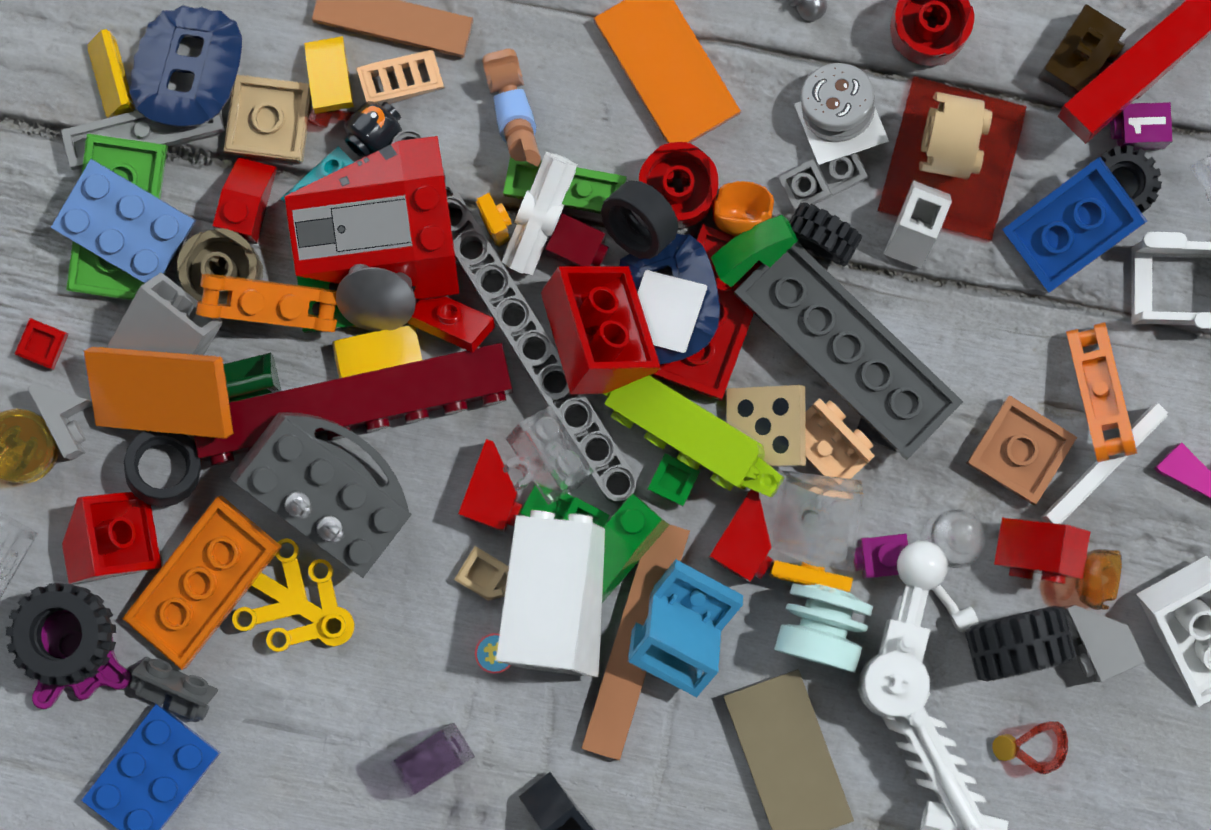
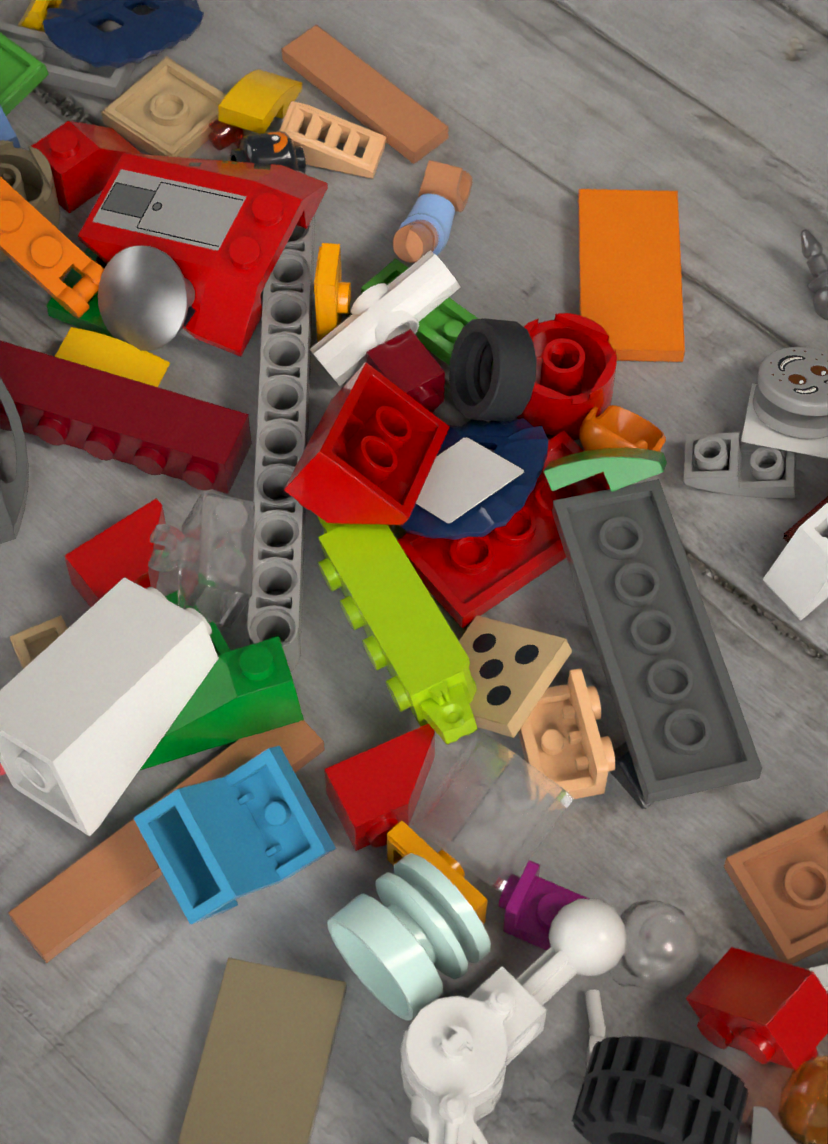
camera: 30 degrees right, 25 degrees down
(452, 322) = (211, 372): red plate -> none
(673, 480) = (344, 675): green plate -> none
(824, 234) = (703, 506): black tyre -> none

